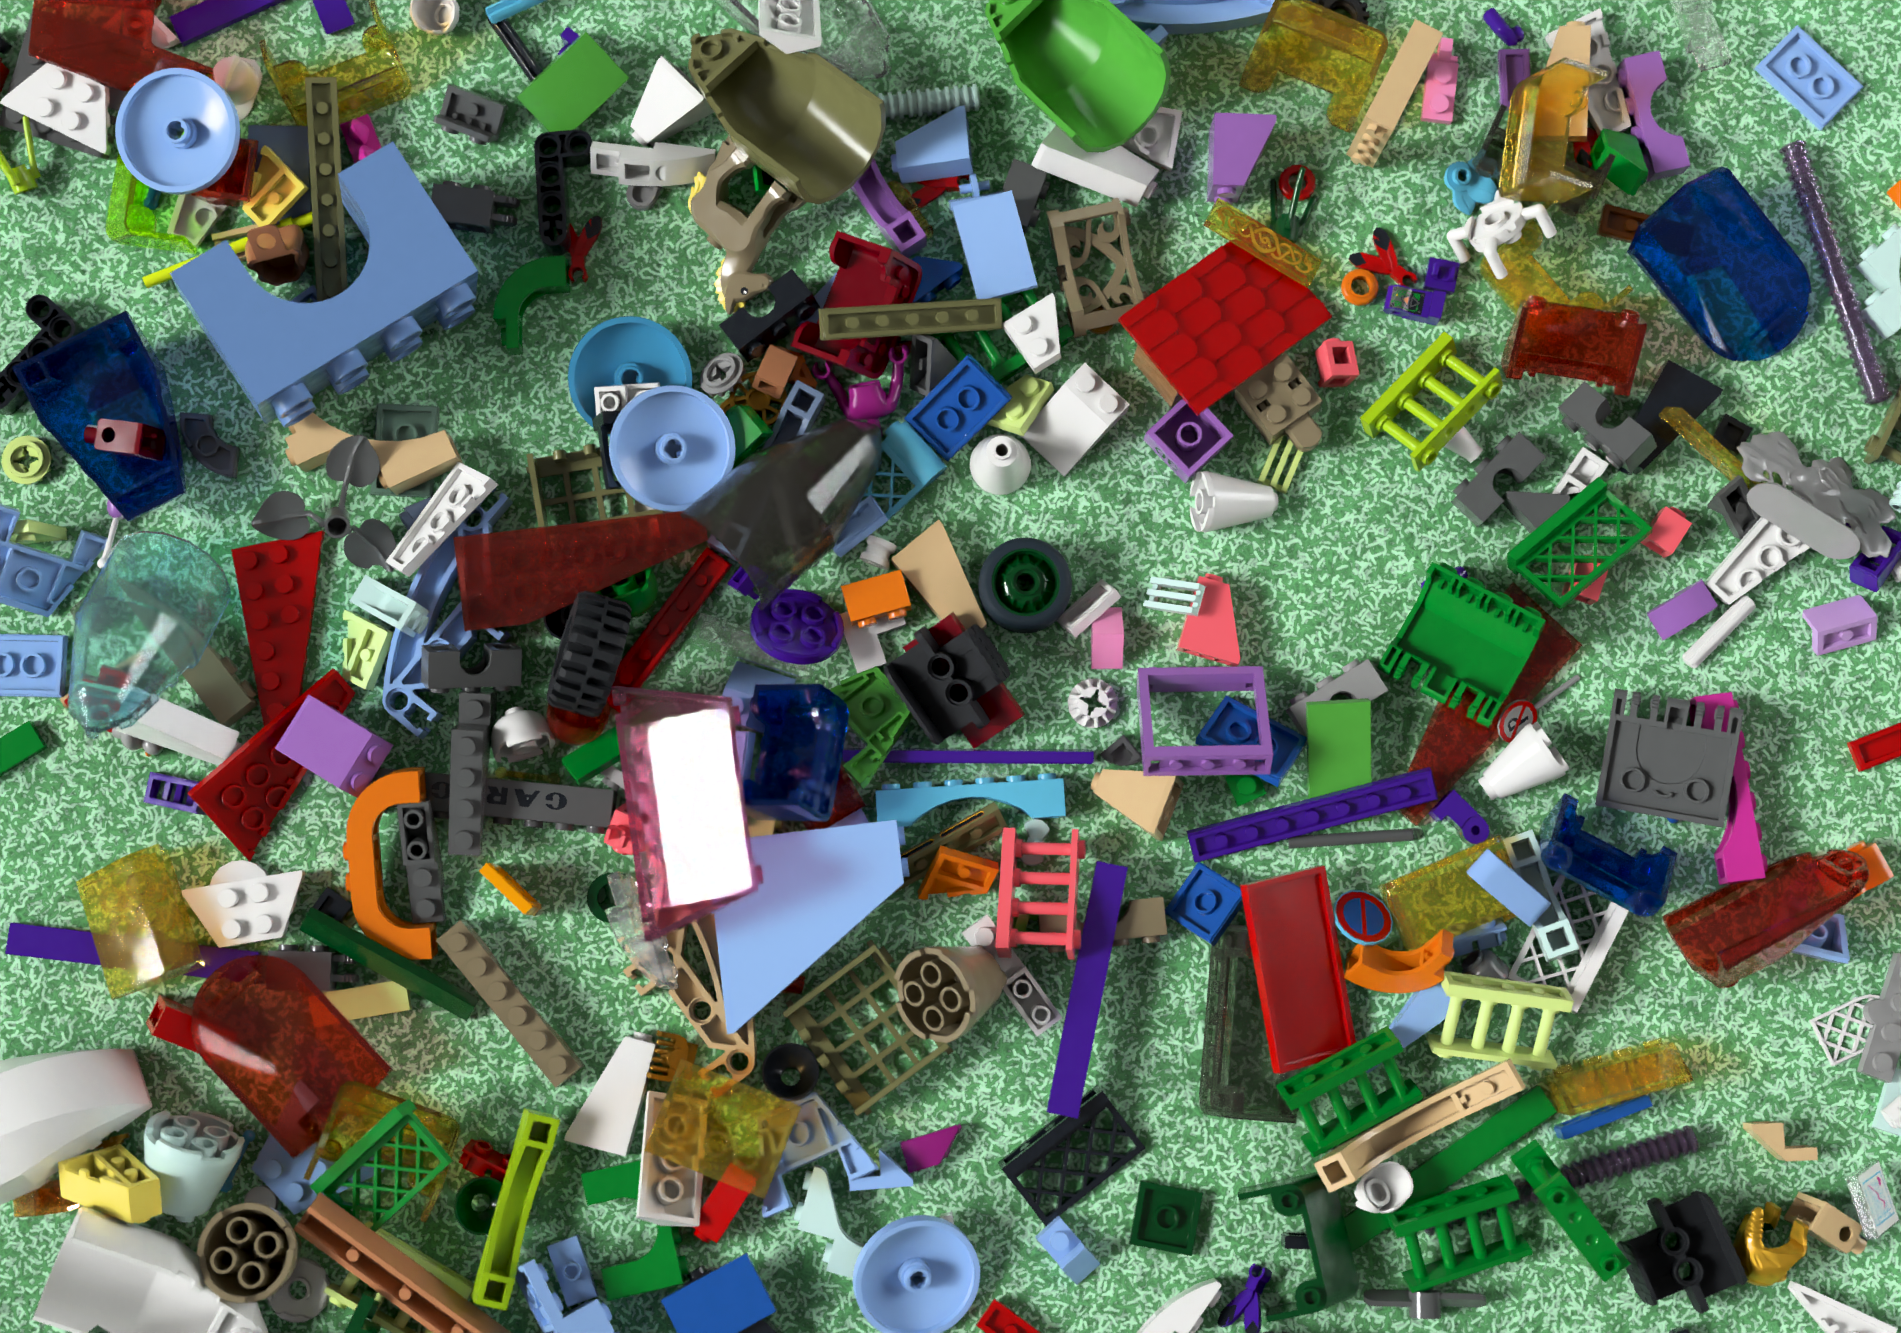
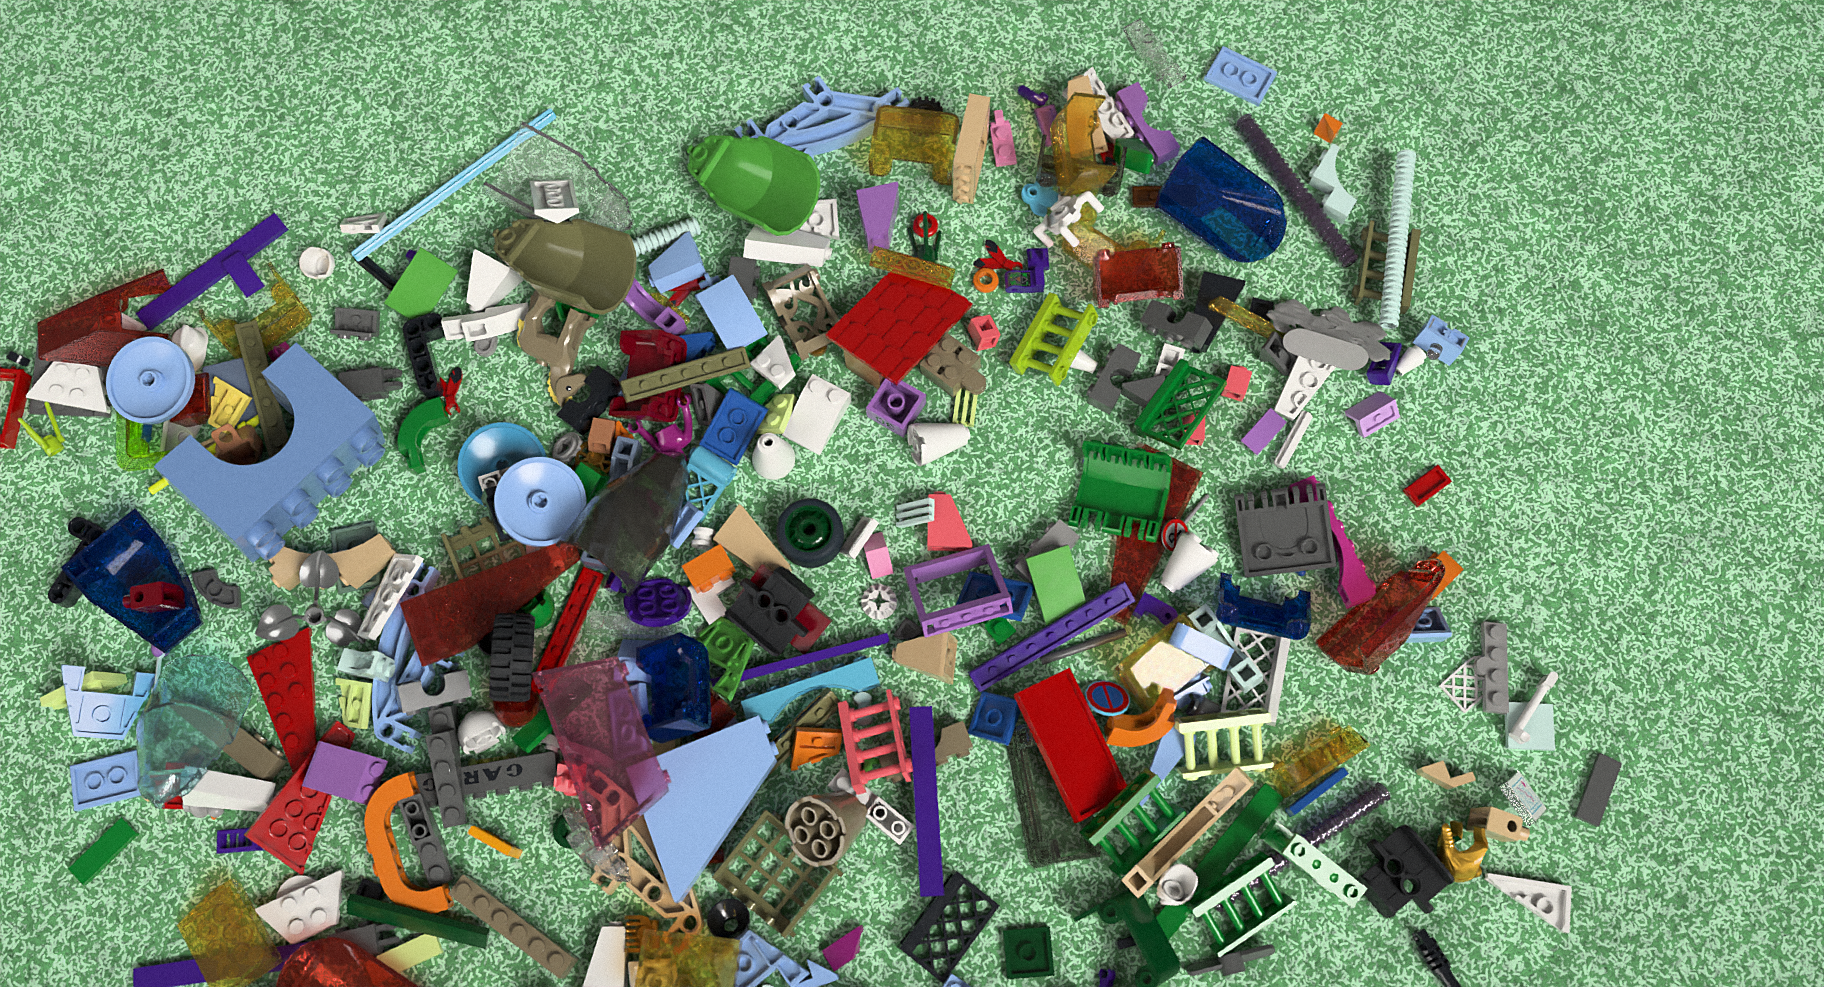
camera: 10 degrees left, 10 degrees down
(17, 451) = (81, 629): yellowish green gear -> none

